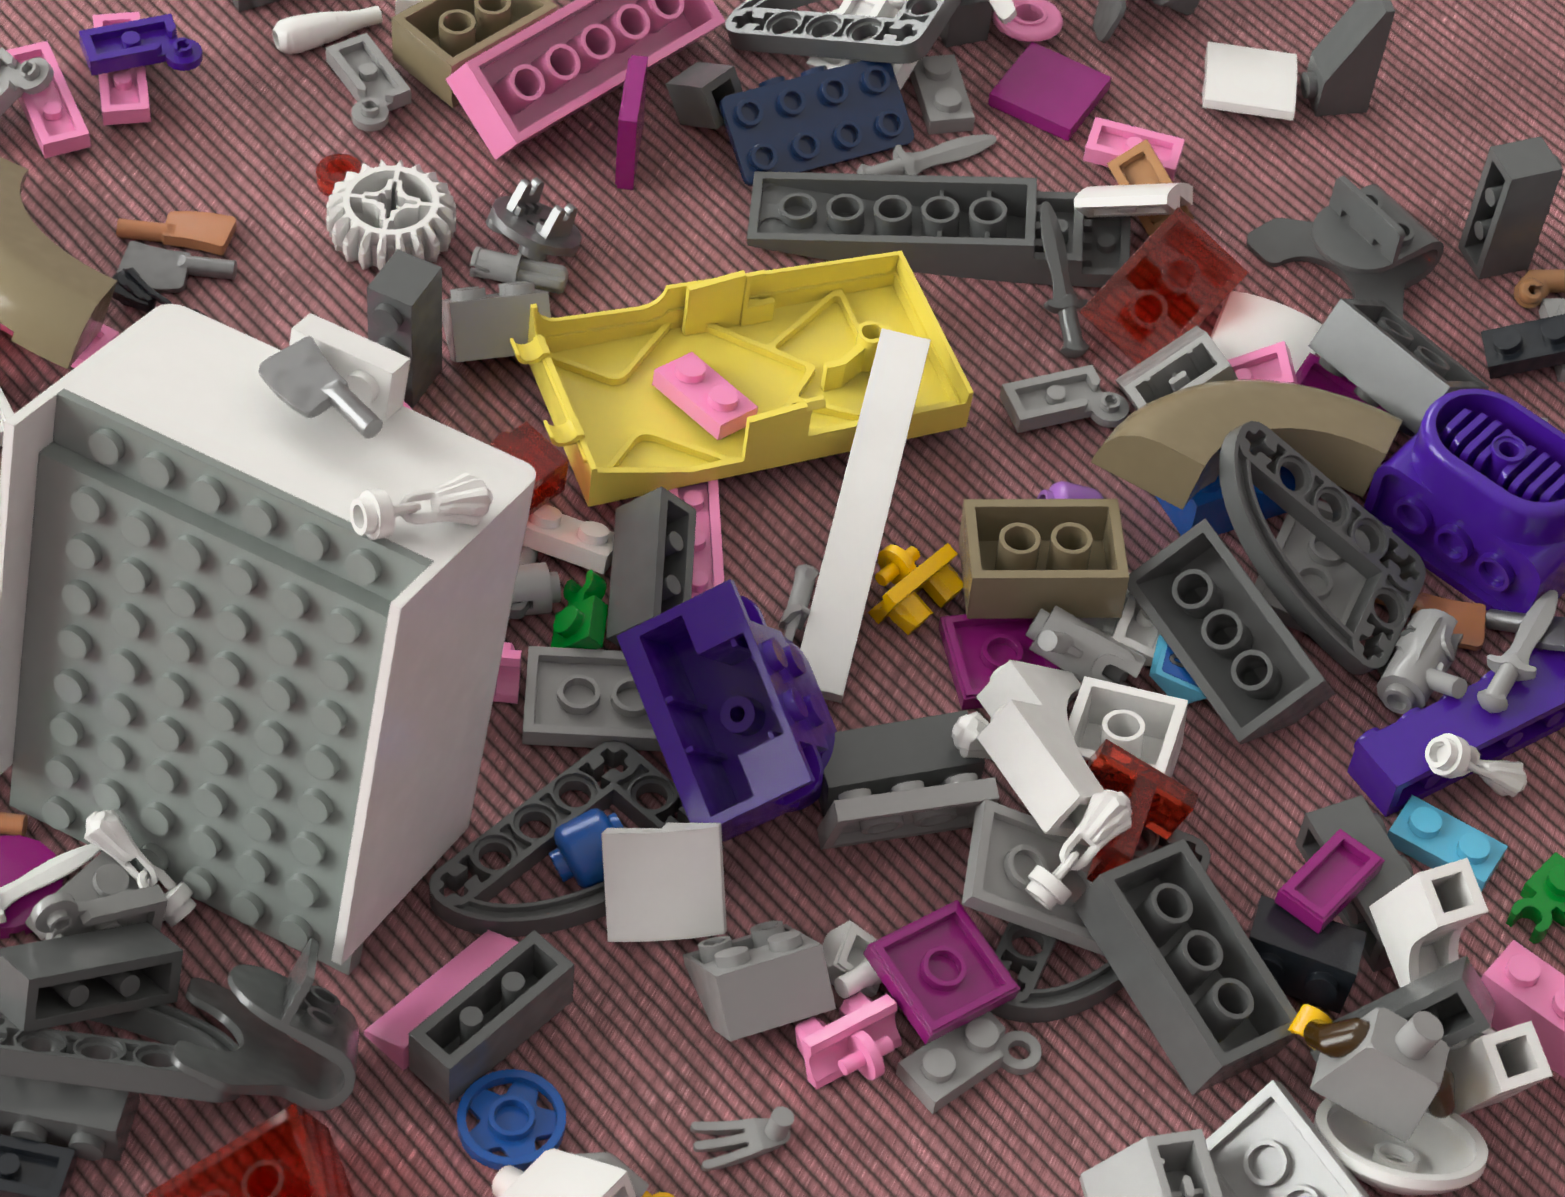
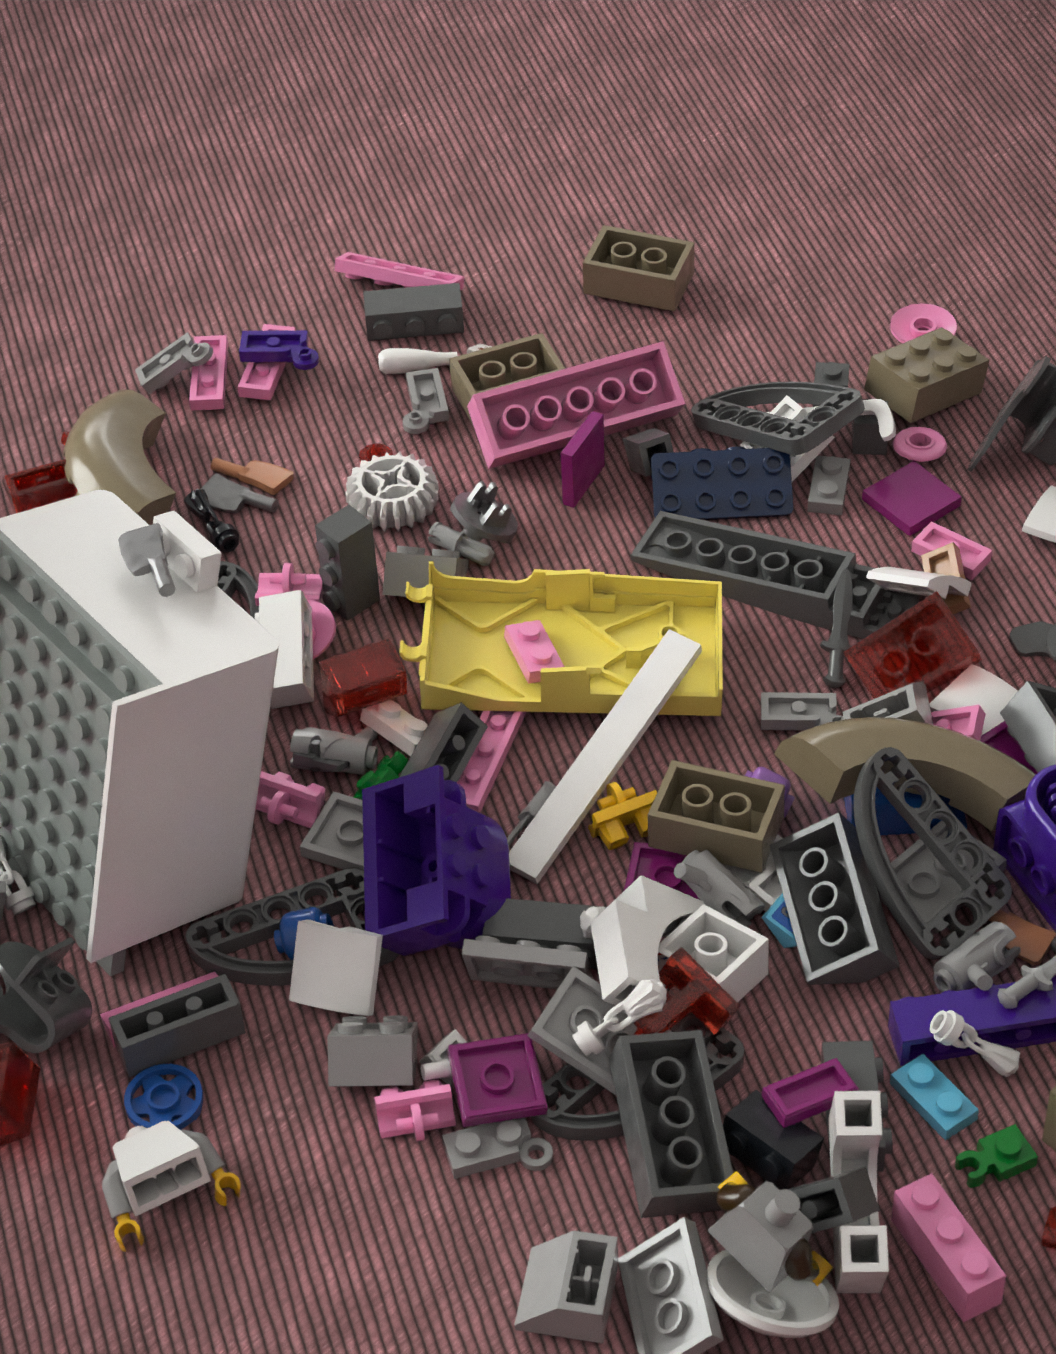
camera: 30 degrees right, 5 degrees down
(459, 501) = (201, 649): white piece -> none
(751, 1136) = (312, 1157): light grey piece -> none
(915, 162) = (809, 526): light grey sword -> none

